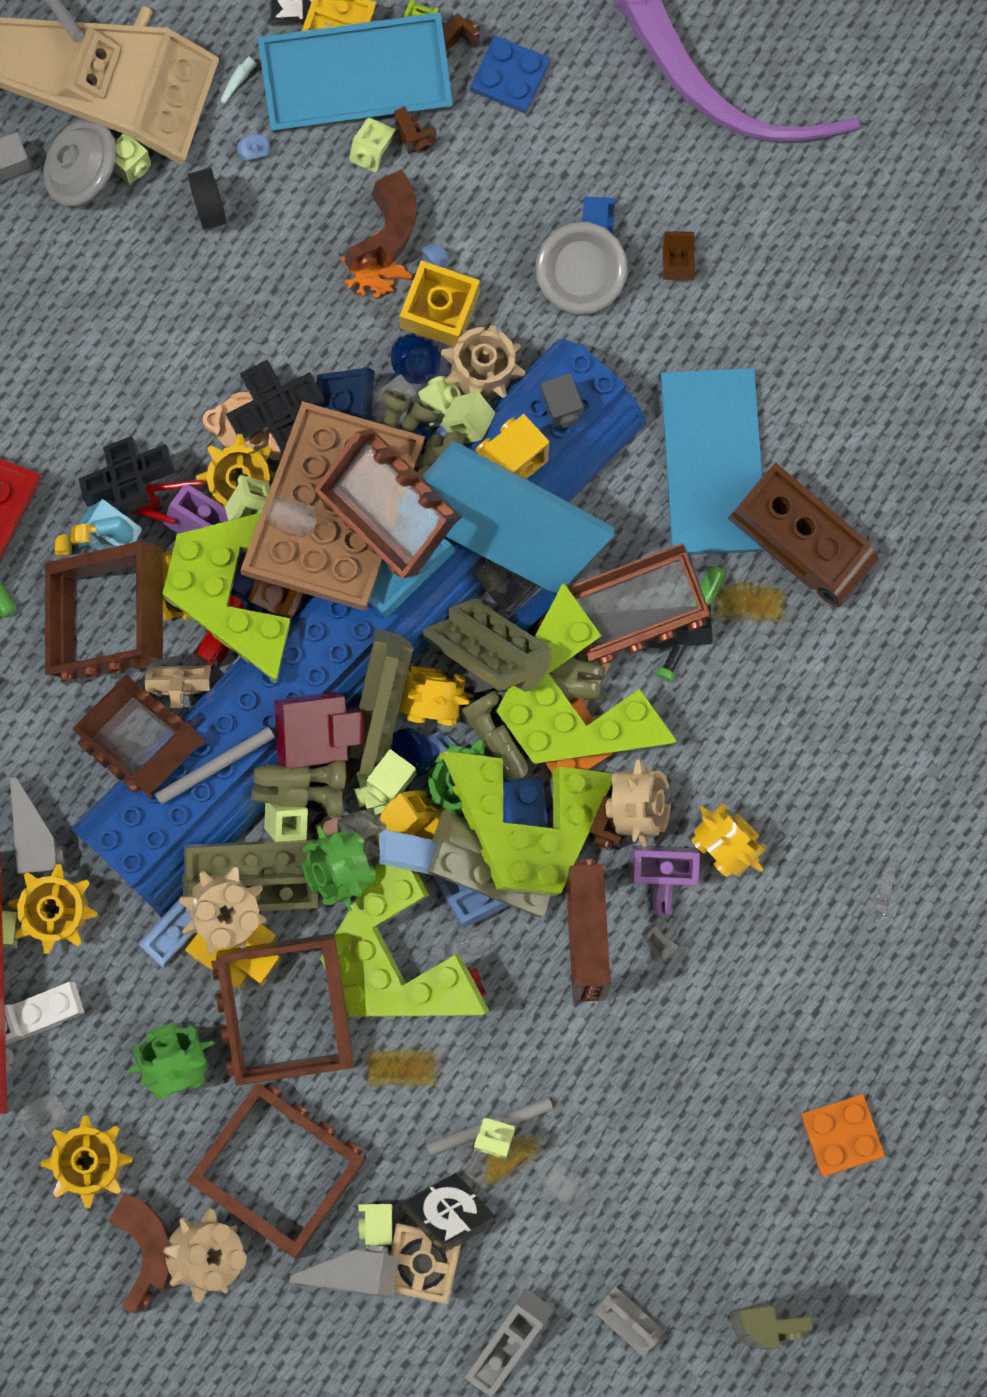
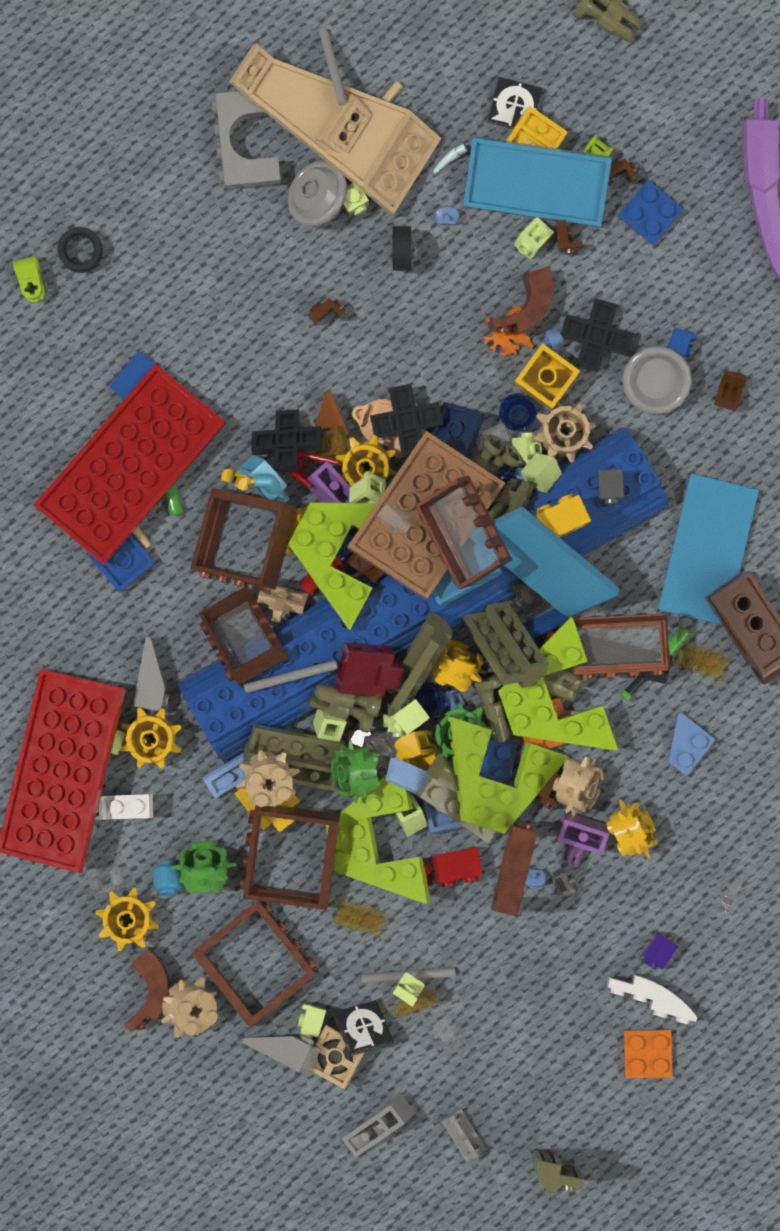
camera: 20 degrees right, 10 degrees up
(126, 306) = (320, 310): none -> reddish brown bracket
(126, 1092) = (166, 879): none -> dark azure head
(177, 433) = (329, 415): none -> dark orange slope
(188, 462) = (333, 444): none -> clear yellow slope
(432, 913) = (412, 820): none -> yellowish green brick
(488, 238) = (596, 335): none -> black plate
(510, 960) = (456, 866): none -> red brick
(620, 947) = (535, 878): none -> medium blue piece
(766, 714) = (688, 744): none -> medium blue wing
(814, 993) = (659, 951): none -> dark purple brick
(838, 1056) = (662, 1000): none -> white slope

